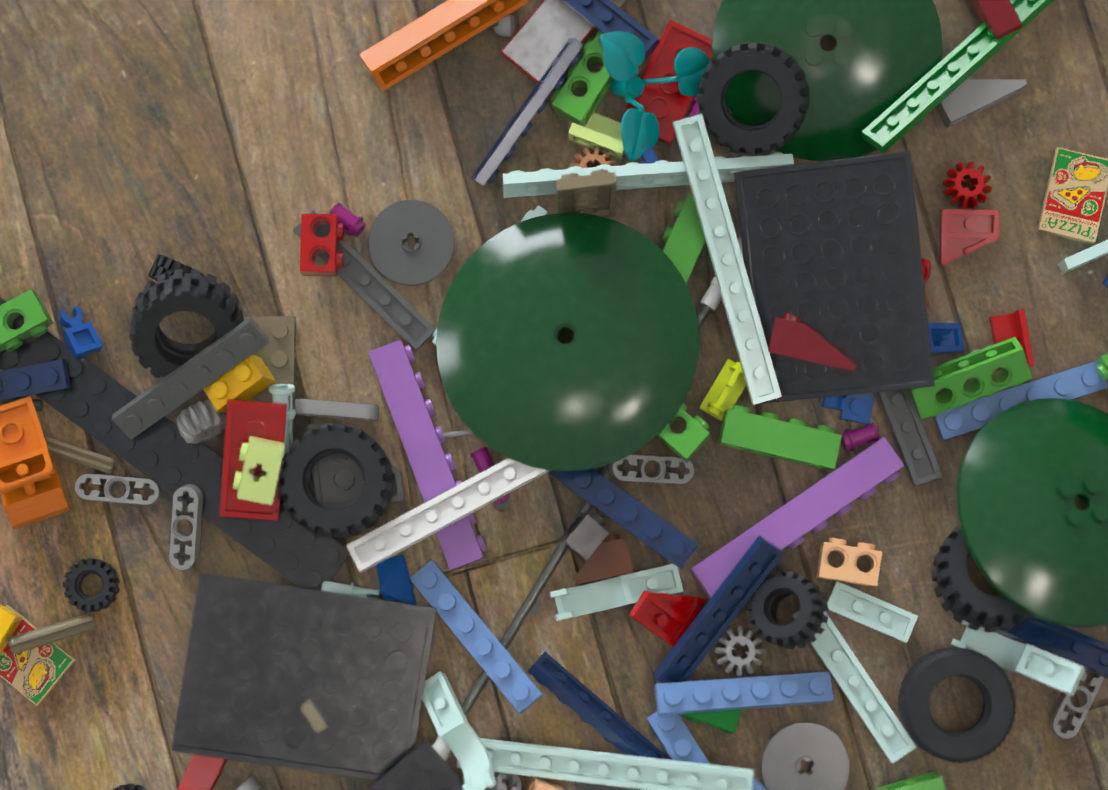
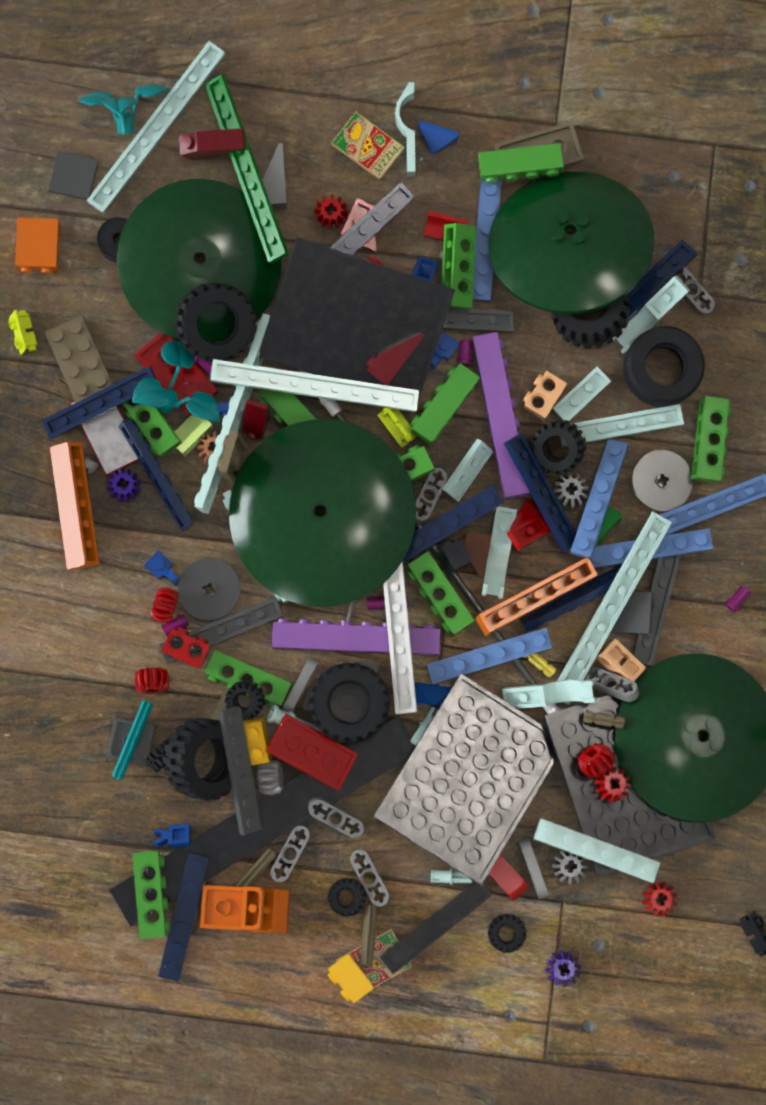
camera: 70 degrees left, 0 degrees up
(97, 714) = (435, 926): none -> black plate
(121, 625) = (371, 895): none -> light grey beam
(169, 700) = (448, 876): none -> light aqua axle
(177, 229) = (132, 740): none -> teal axle
(178, 228) = (119, 734): none -> dark grey tile
(262, 220) = (152, 680): none -> red gear
(262, 487) = (333, 750): yellowish green brick -> none
(299, 351) = (253, 691): none -> black tyre
(308, 295) = (220, 661): none -> bright green brick
(313, 716) = (498, 781): dark tan tile -> none
(365, 194) = (164, 605): none -> red gear
(413, 169) = (161, 566): none -> blue plate
(494, 710) = (541, 664): none -> light yellow axle
(502, 68) = (130, 479): none -> dark purple gear
(512, 580) = (427, 564): none -> bright green brick
(578, 664) = (536, 596): none -> orange brick
(650, 205) = (255, 420): none -> dark red slope
(706, 505) = (467, 470): none -> light aqua plate
(978, 243) = (374, 220): none -> plate

